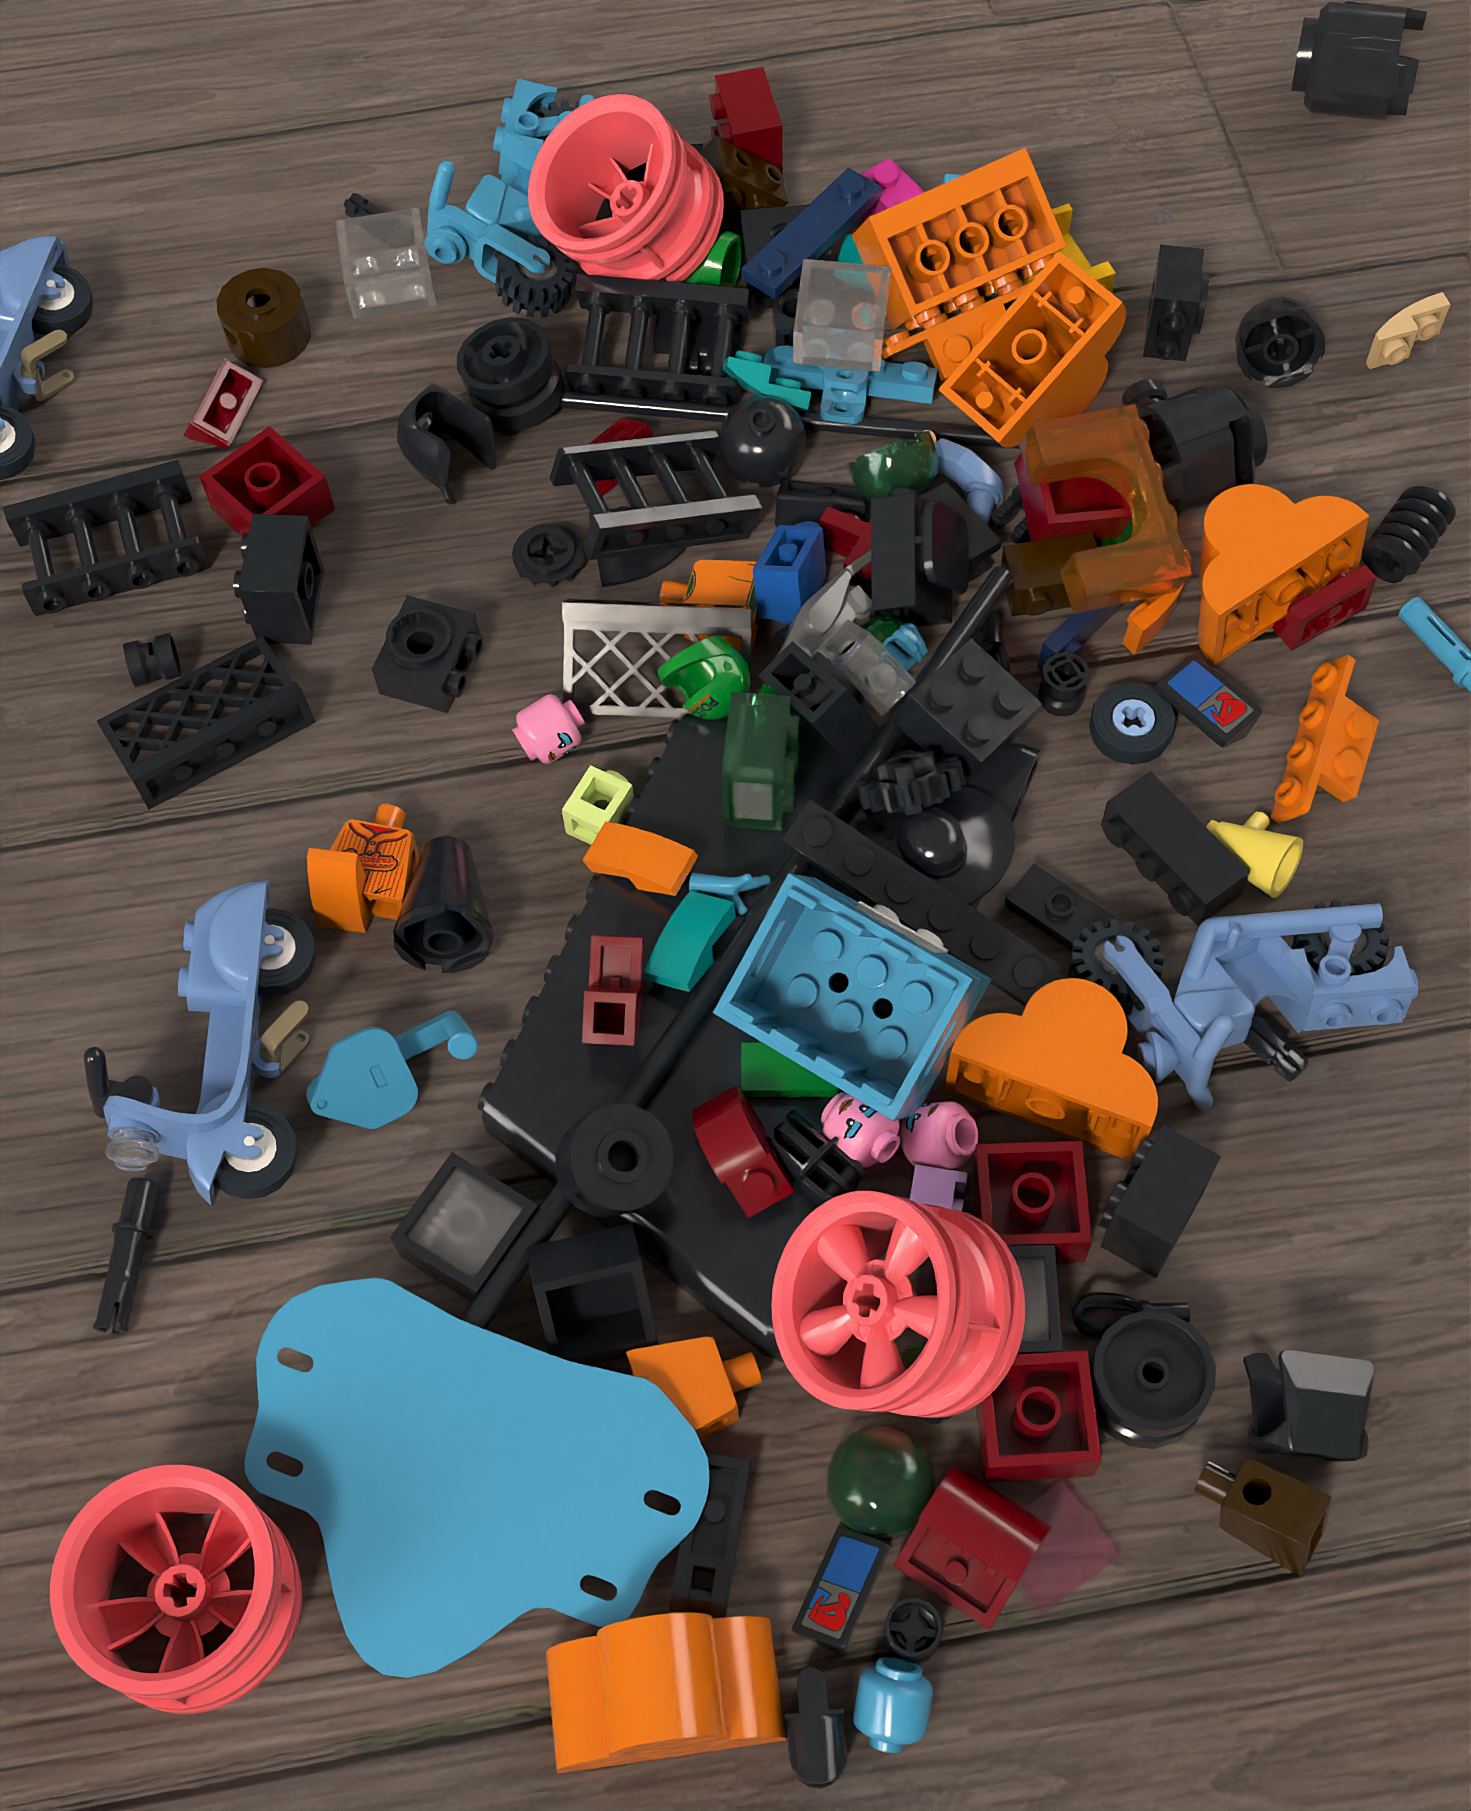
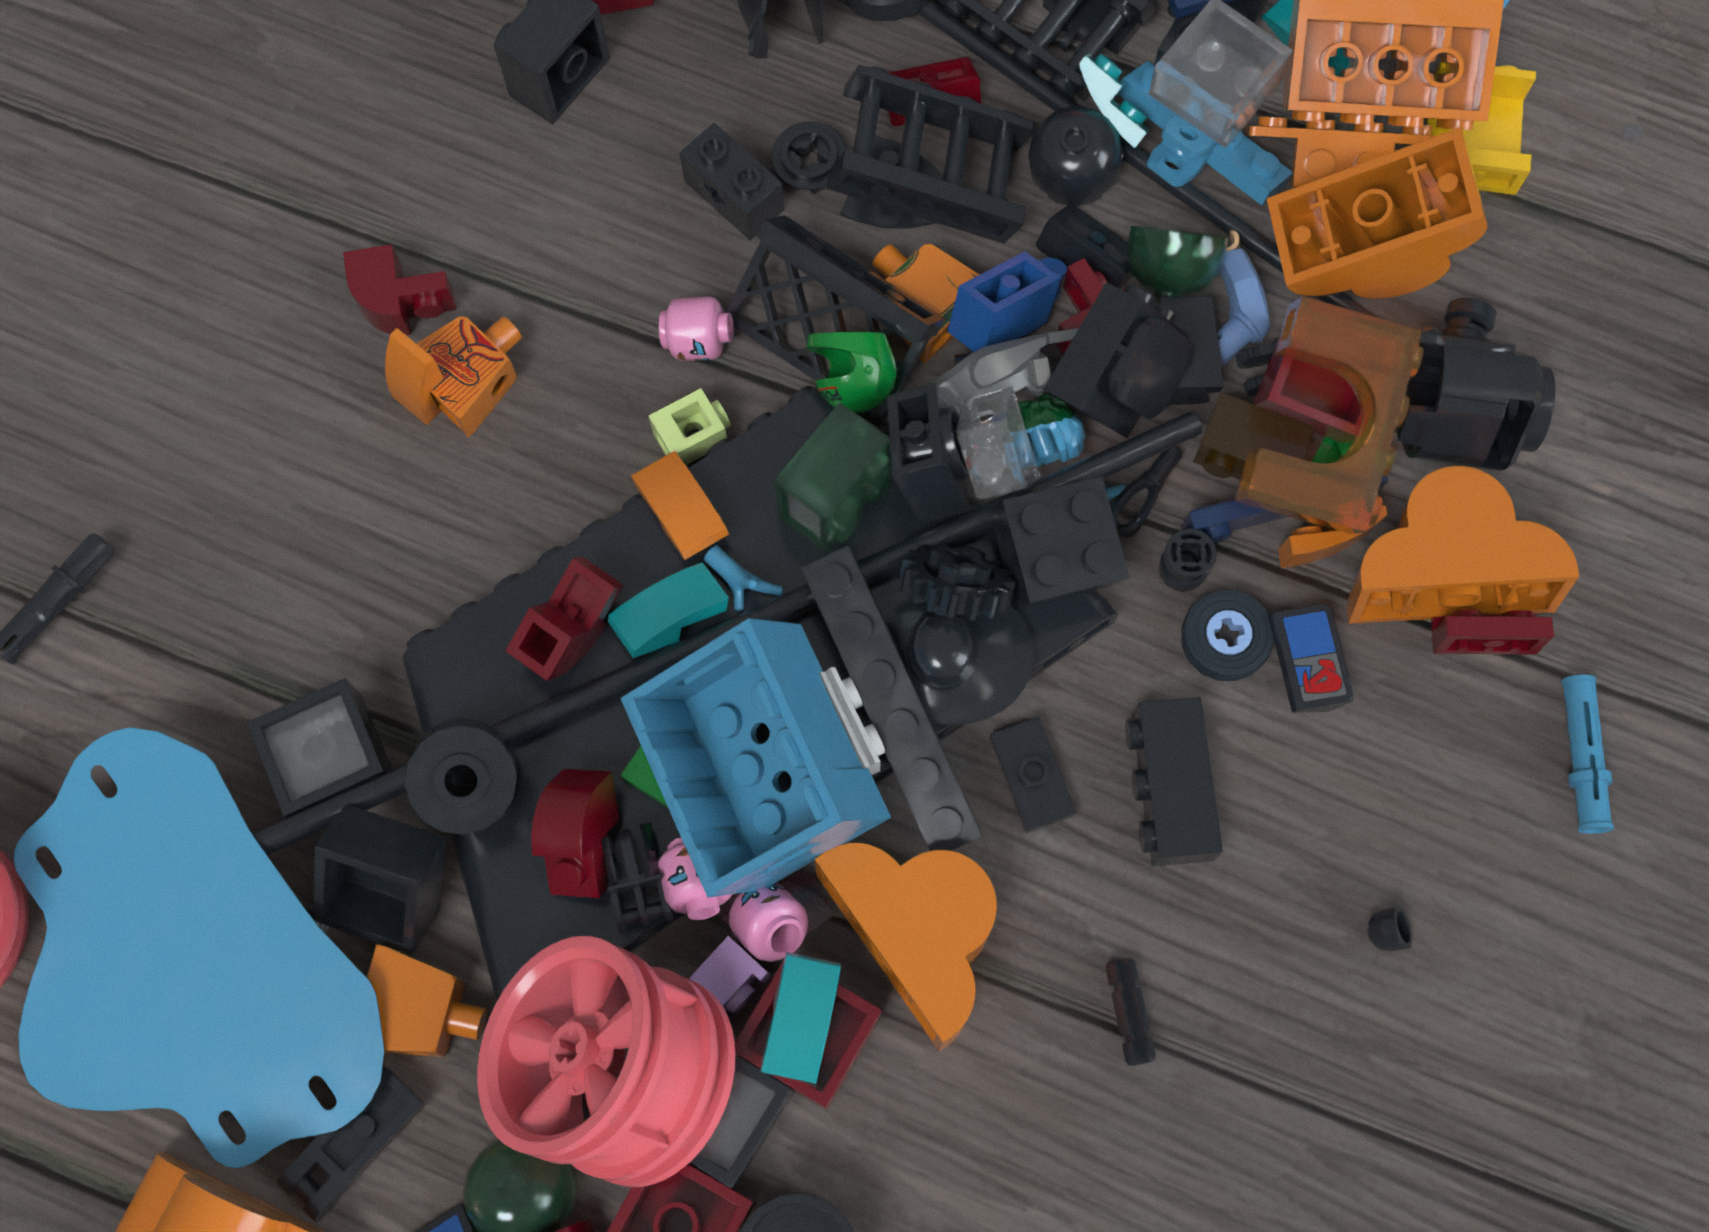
camera: 30 degrees right, 10 degrees up
(152, 660) = (404, 64): black wheel -> none
(219, 742) = (413, 175): black fence -> none
(229, 1145) = (287, 392): medium blue piece -> none
(265, 848) = (389, 297): none -> dark red brick
(367, 1071) = (333, 559): dark azure piece -> none
(432, 677) = (638, 219): black brick -> none
(444, 910) = (494, 444): black cone -> none
(504, 601) = (731, 180): none -> black brick
(1028, 1178) = (800, 1017): none -> teal slope
(1119, 1302) = (846, 1191): black piece -> none
(1156, 1199) = (917, 1104): black piece -> none
(1175, 302) = (1566, 235): black brick -> none
(1266, 854) = (1248, 835): light yellow piece -> none
(1279, 342) = (1644, 333): black cylinder -> none
(1318, 983) = (1140, 936): medium blue piece -> none
(1329, 744) = (1397, 770): orange bracket -> none
(1408, 533) = (1629, 605): black piece -> none
(1408, 862) = (1390, 930): none -> black hinge

